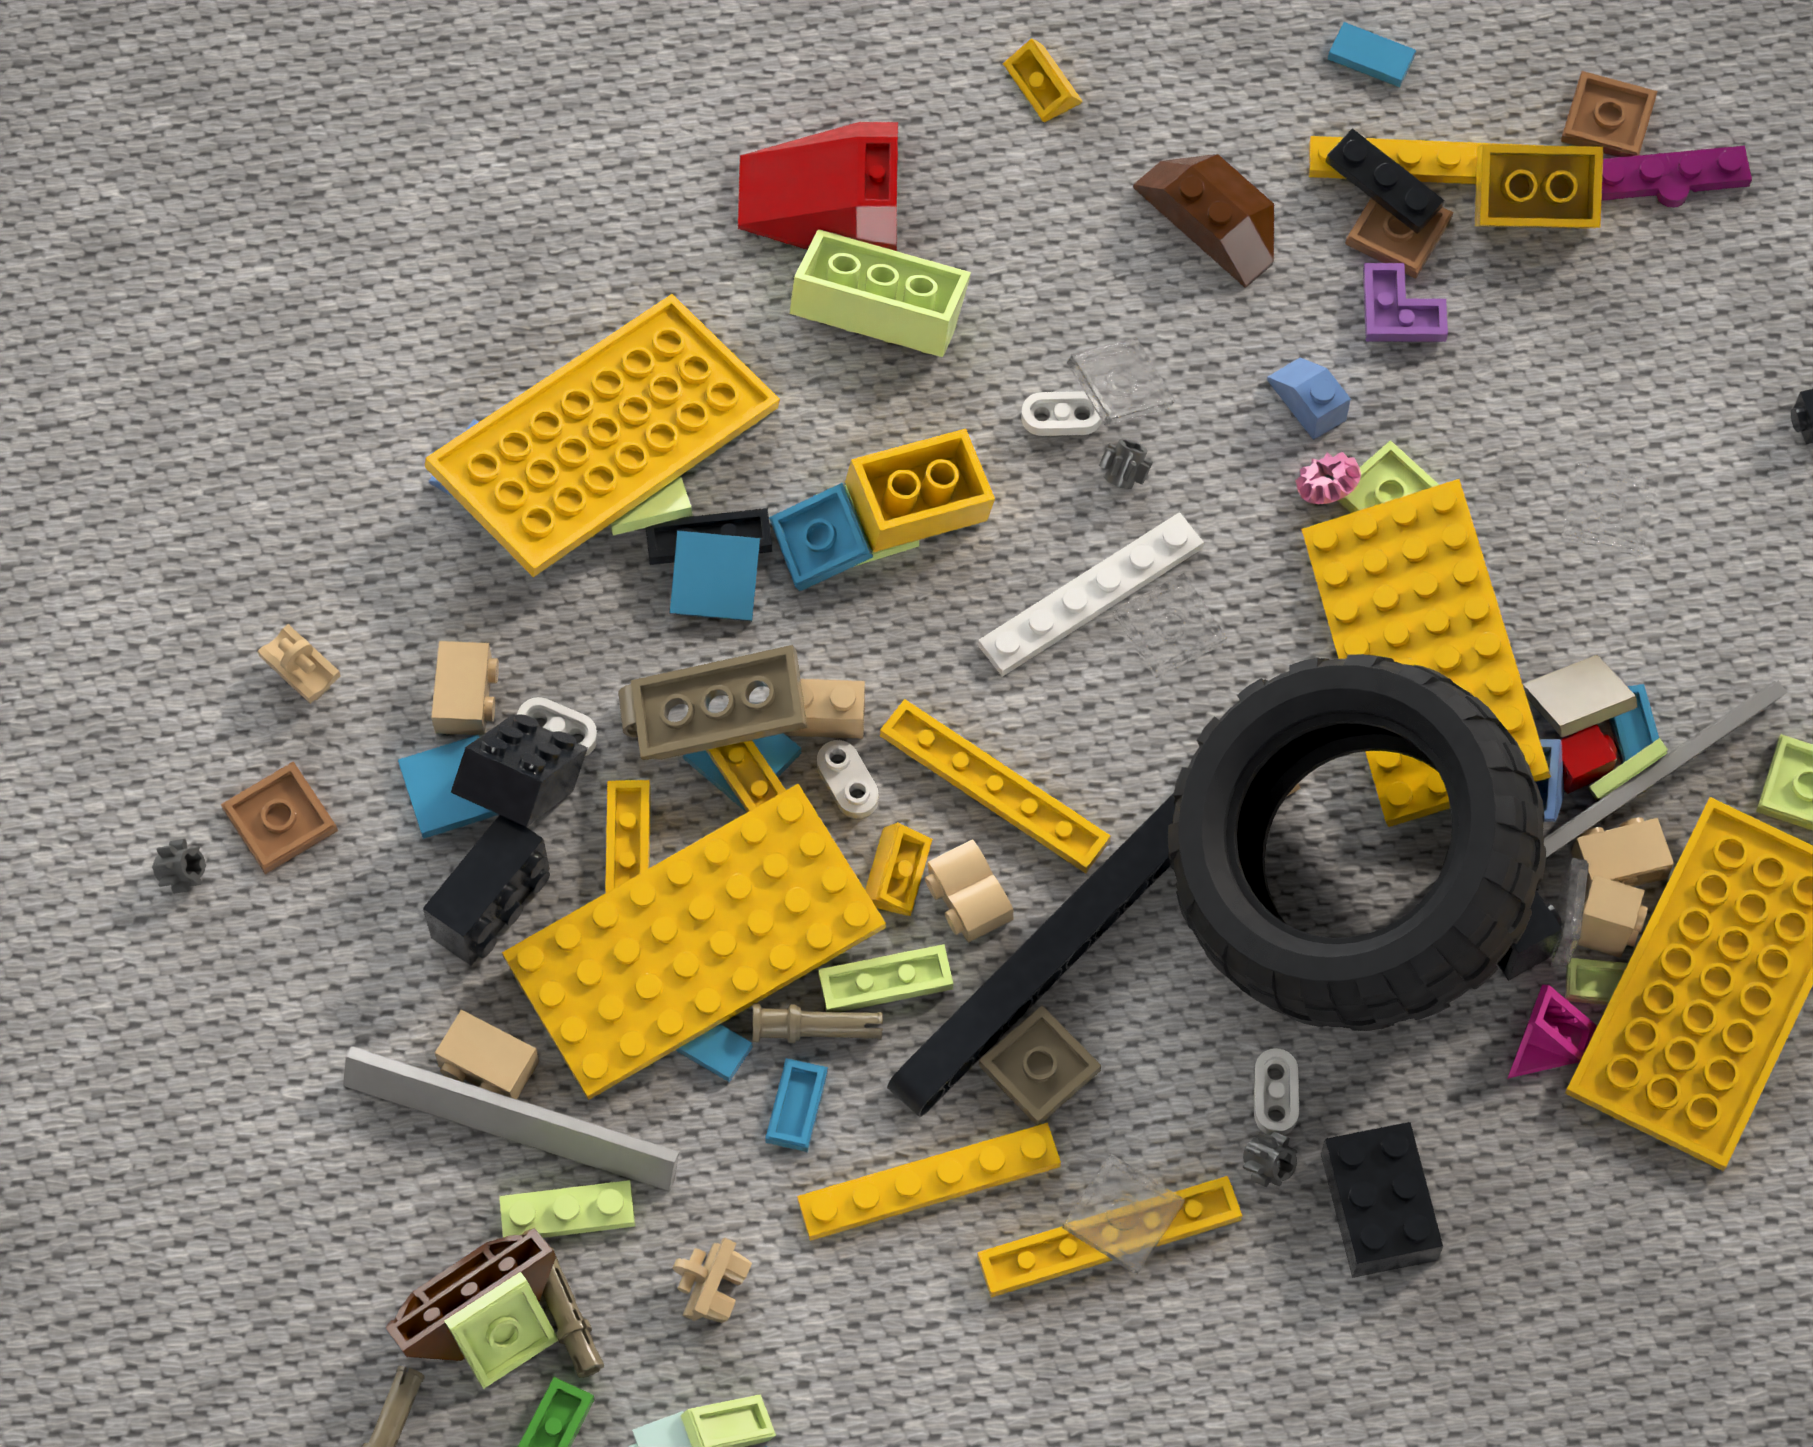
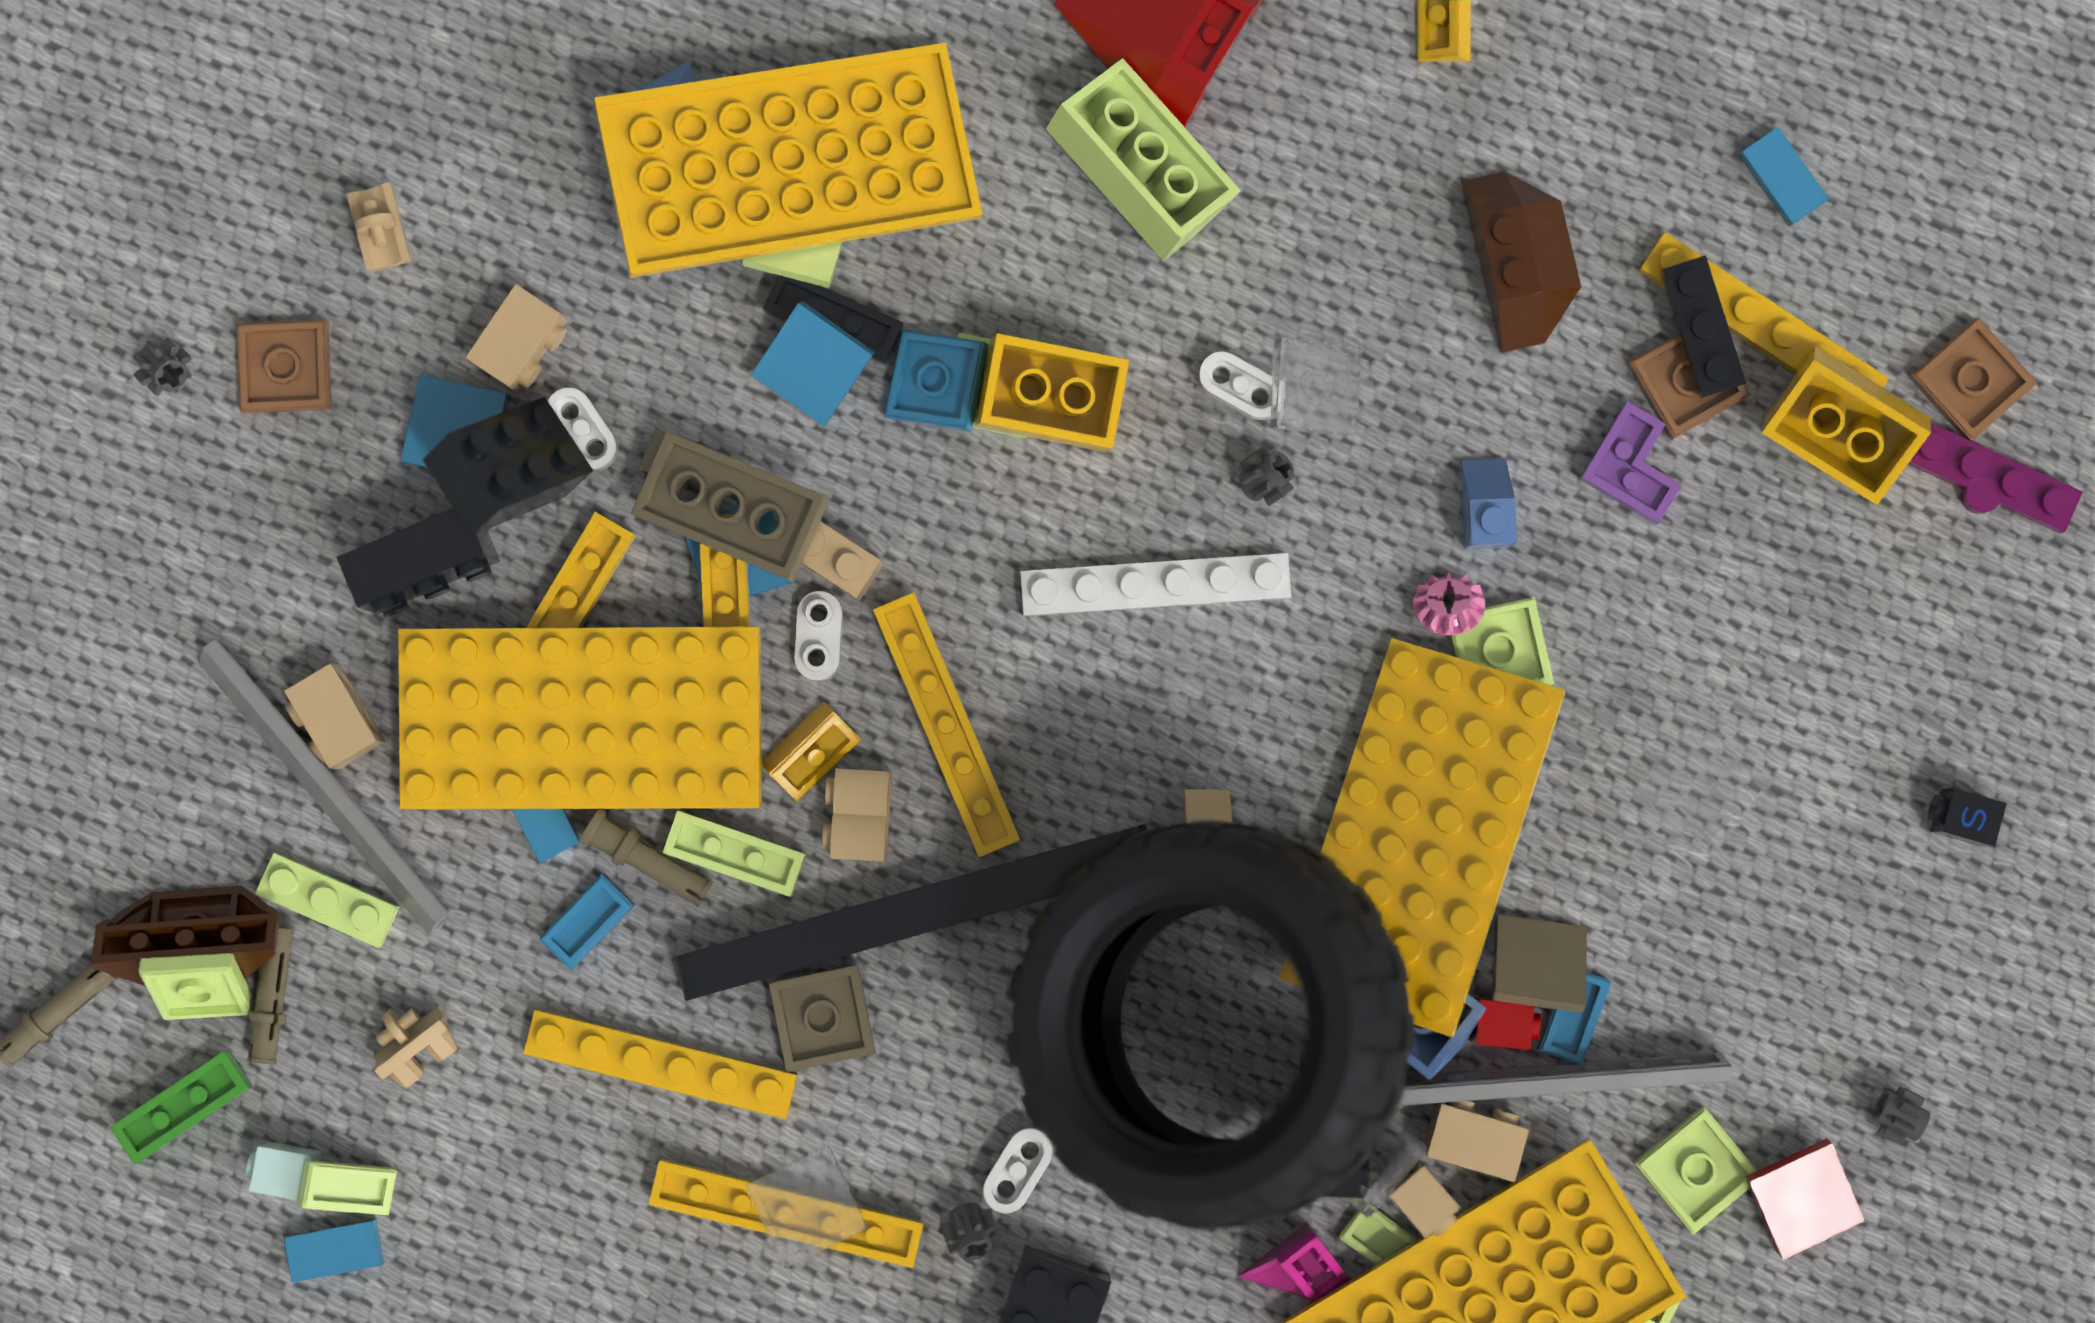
camera: 30 degrees right, 20 degrees up
(1628, 769) = (1534, 1063): yellowish green tile -> none

